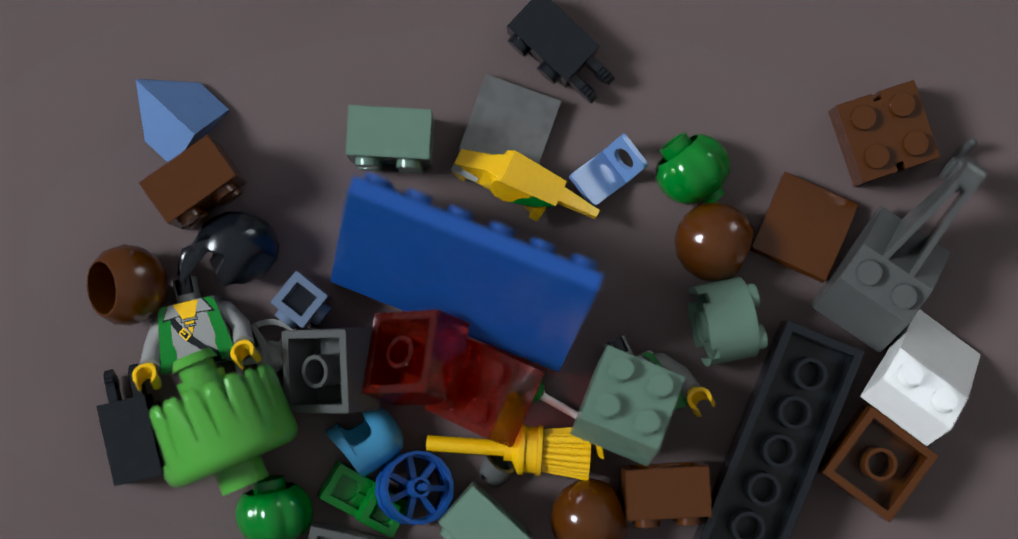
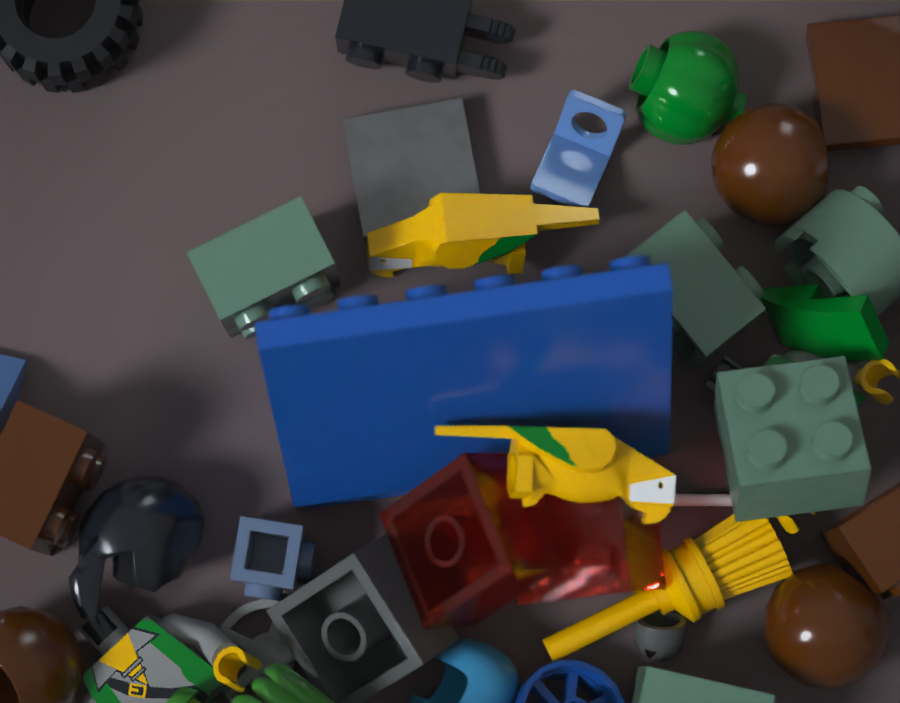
camera: 25 degrees left, 5 degrees down
(496, 353) = (578, 467): none -> yellow animal
(626, 288) = (709, 296): none -> sand green brick
(689, 353) = (825, 325): none -> green slope

